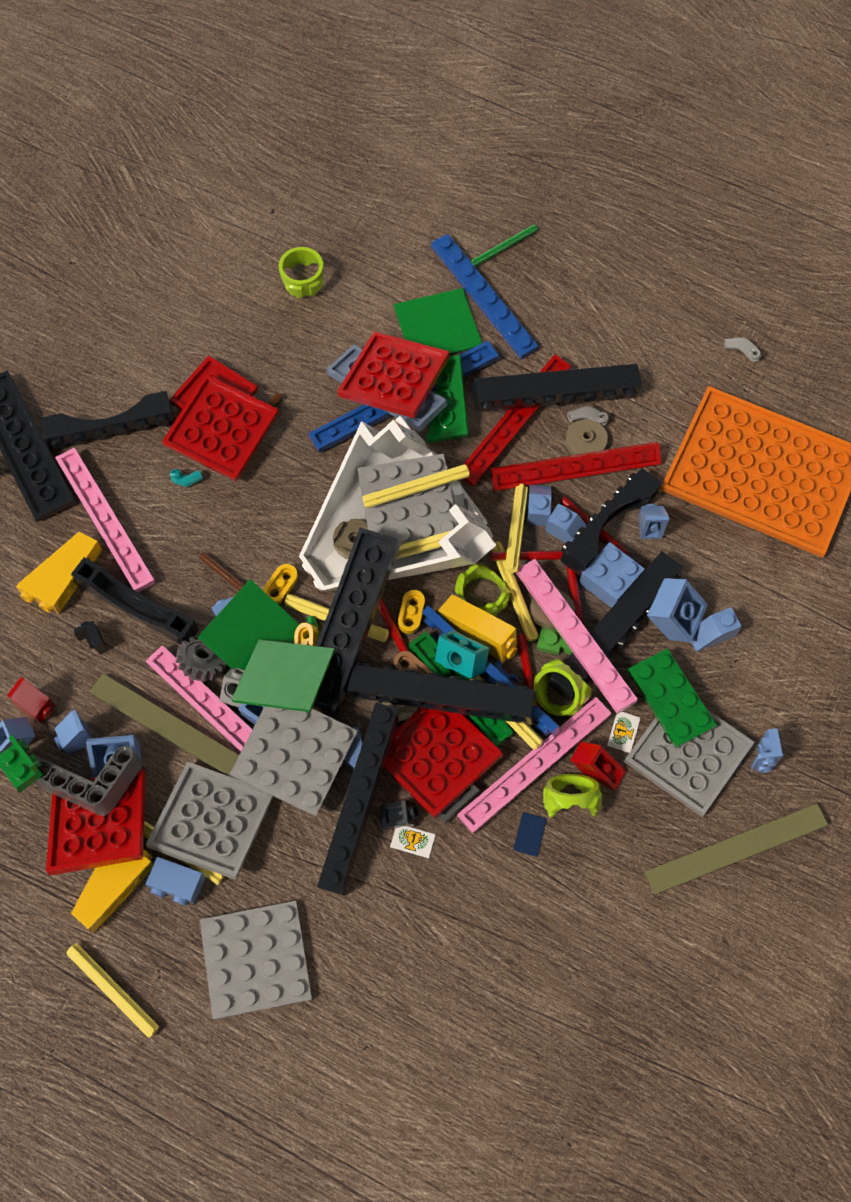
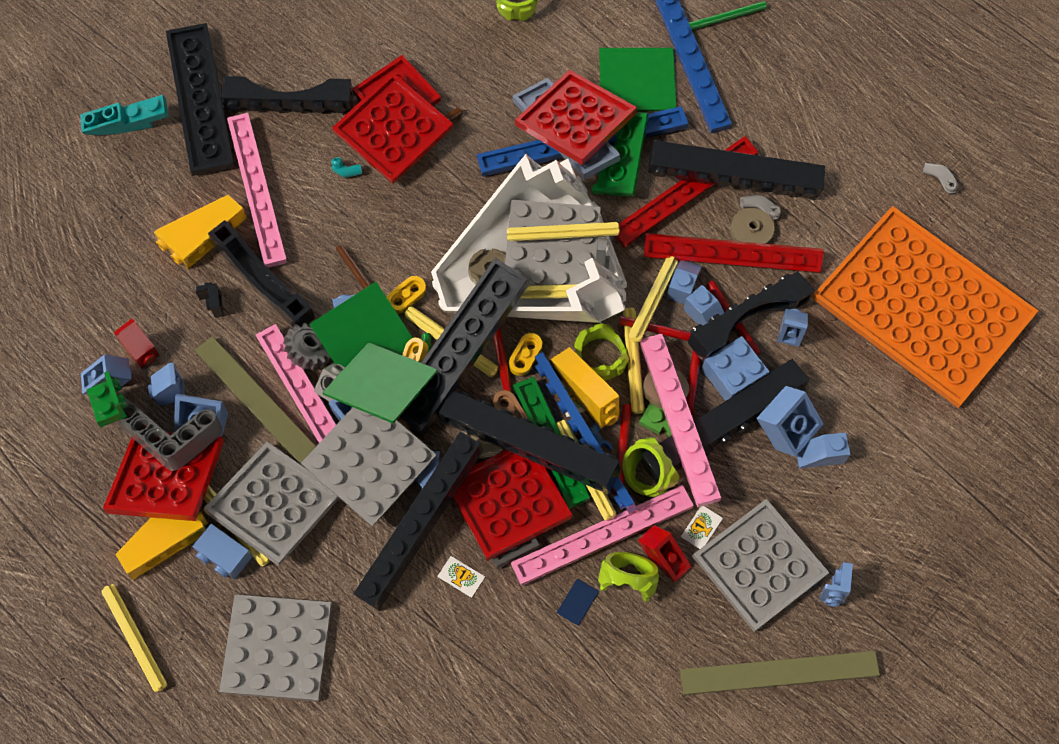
camera: 15 degrees right, 0 degrees up
(399, 815) = (454, 547): black bracket -> none
(461, 654) = (559, 407): teal brick -> none
(671, 698) = (758, 507): green plate -> none

